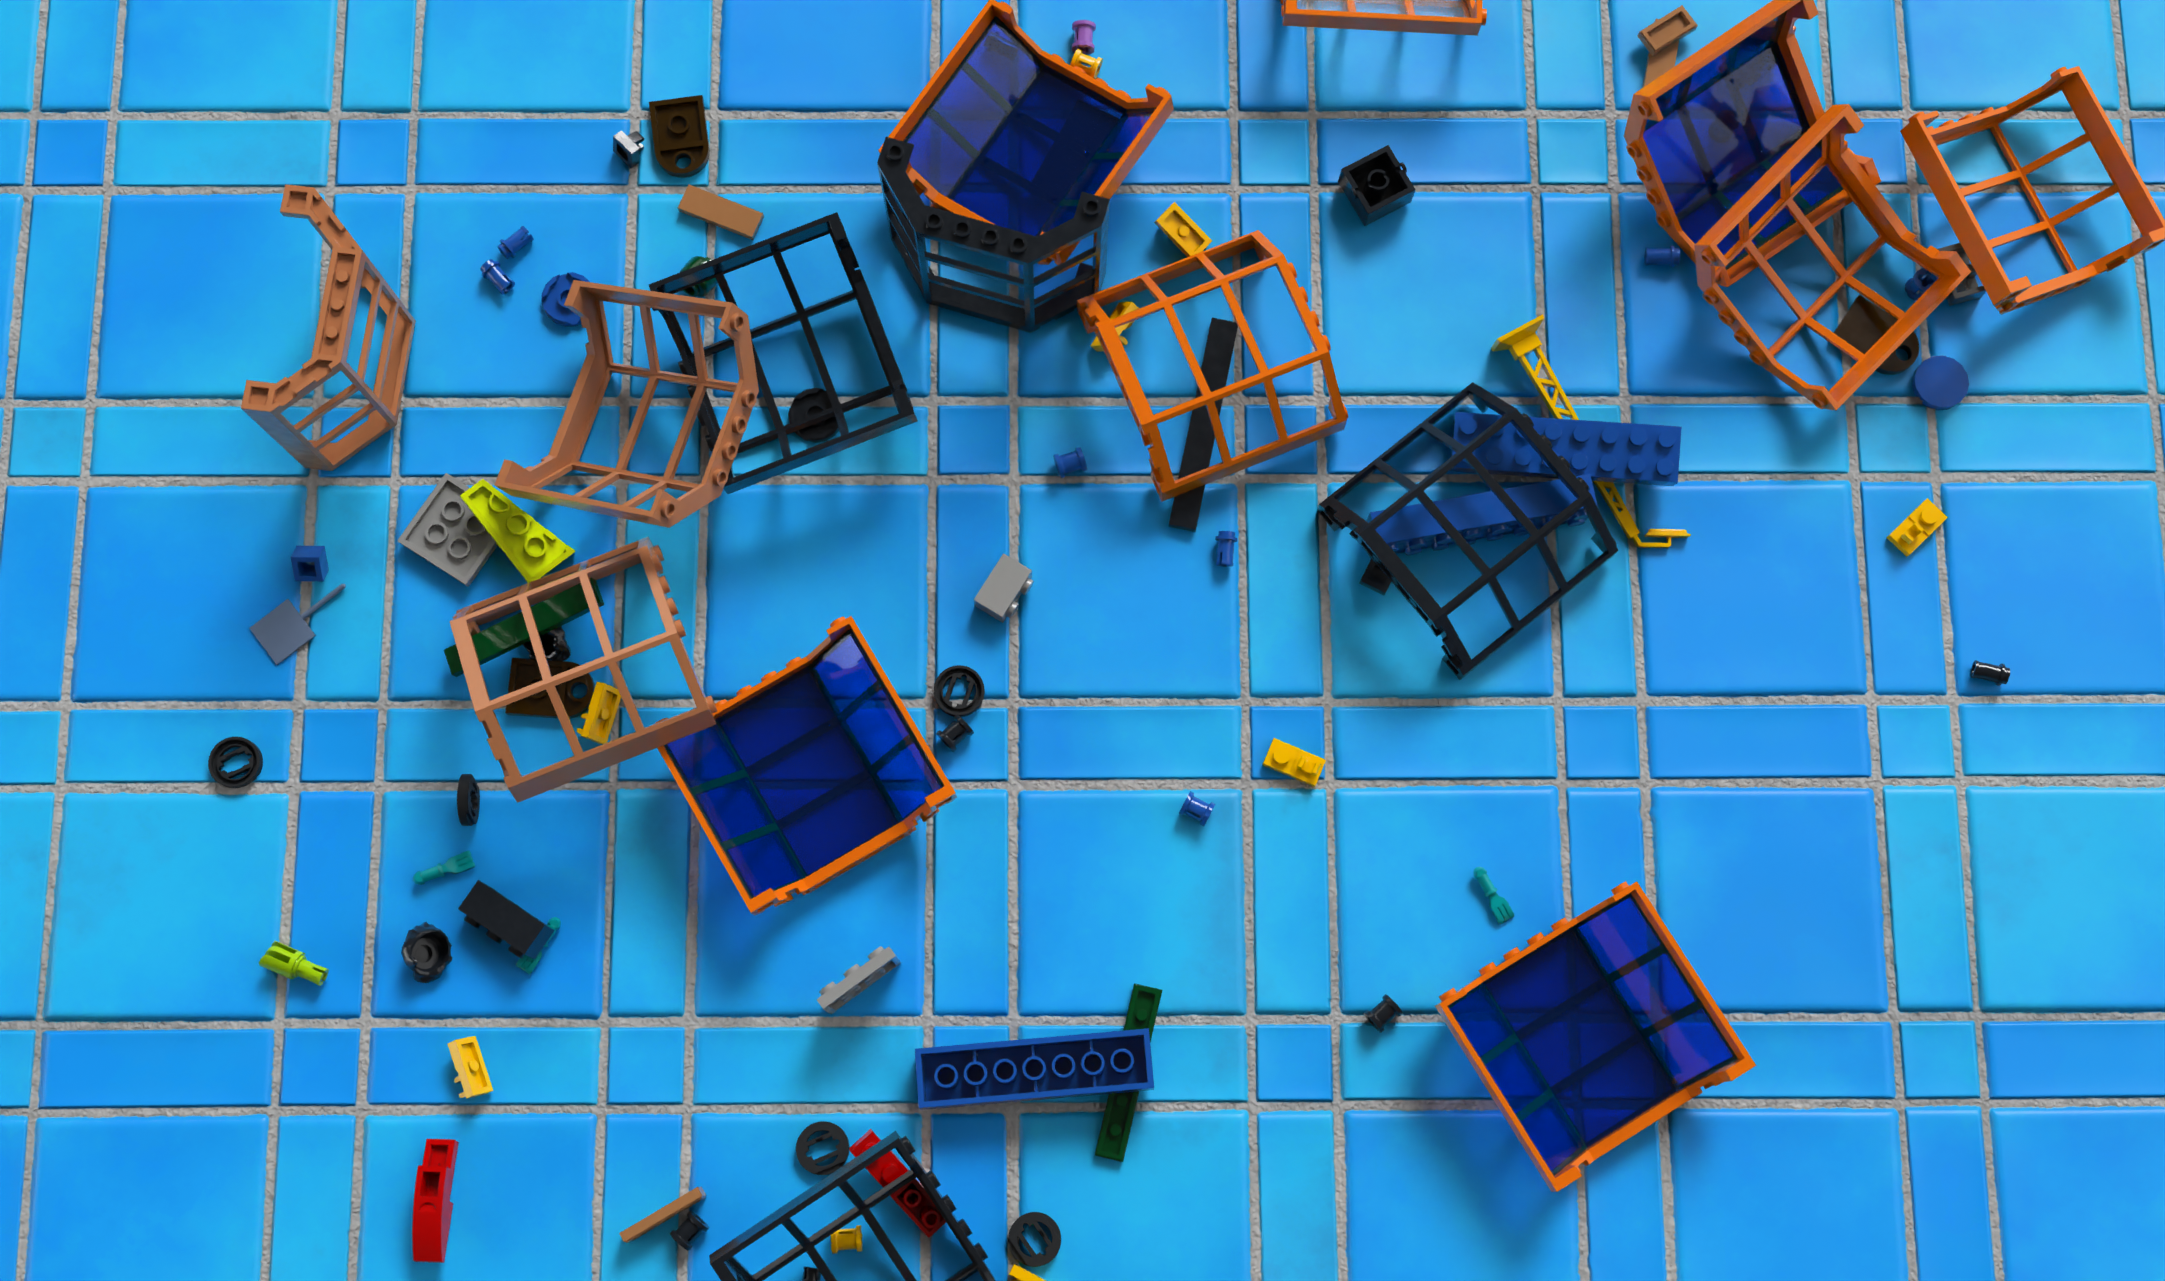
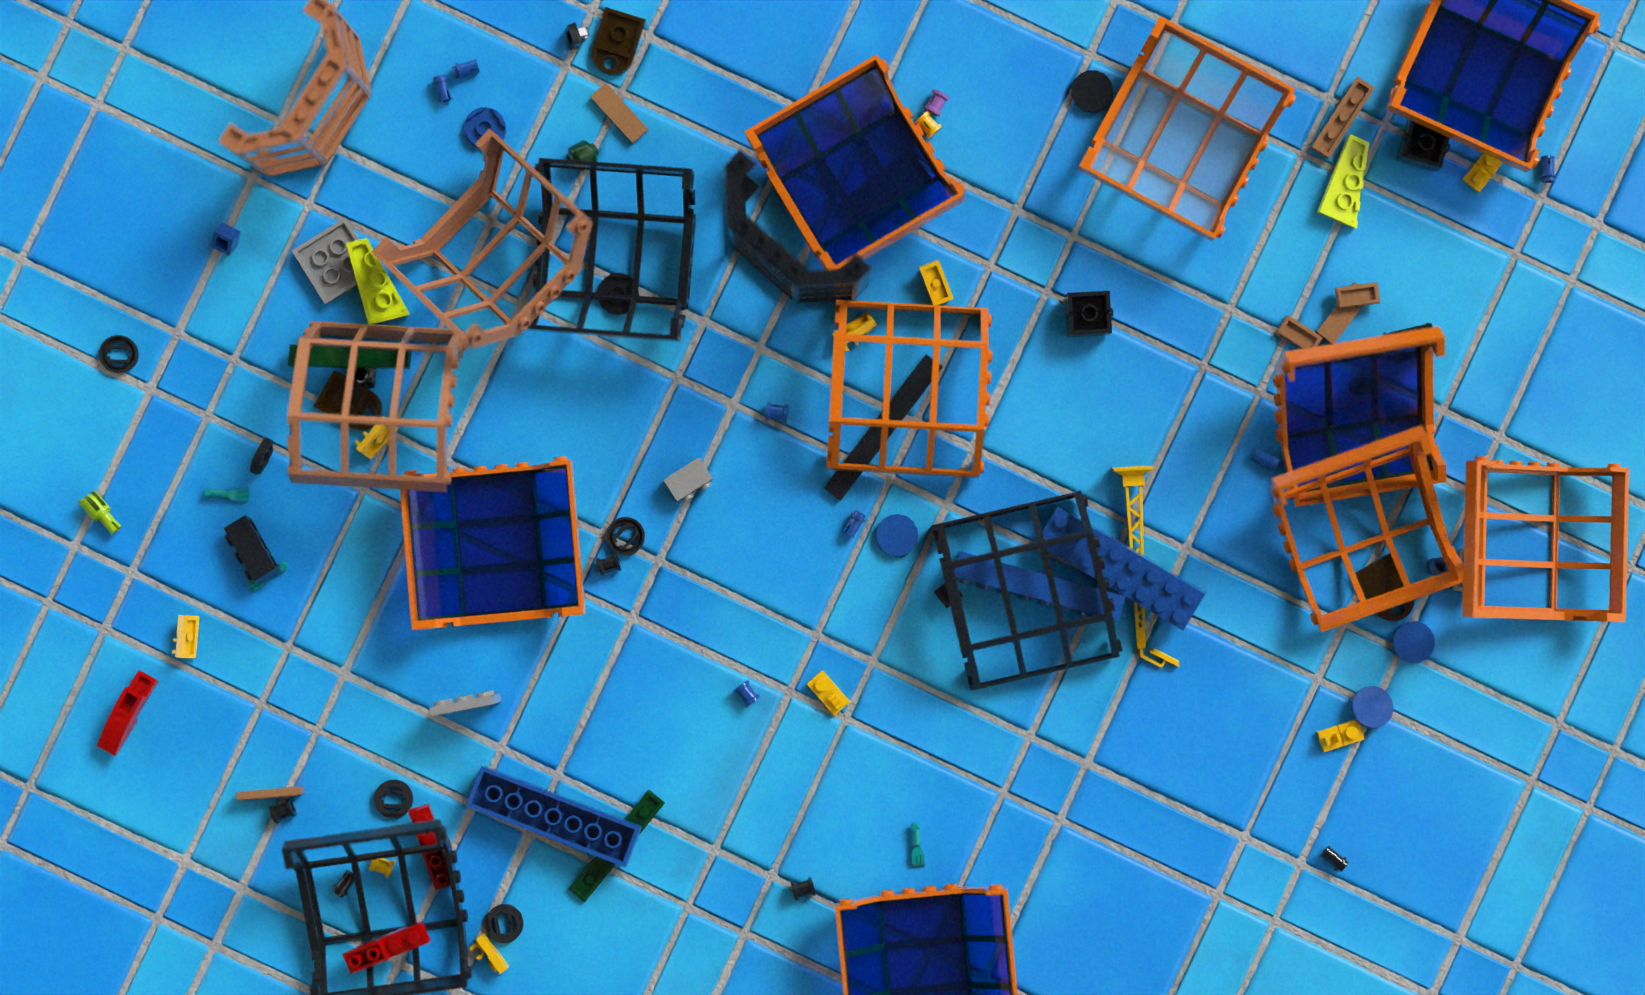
camera: 25 degrees right, 10 degrees up
(285, 629) = (189, 275): sand blue piece -> none
(426, 952) = (191, 546): black hair -> none
(1282, 539) = (897, 535): none -> blue tile
(1614, 103) = (1298, 334): none -> medium nougat tile
(1935, 476) = (1372, 707): none -> blue tile

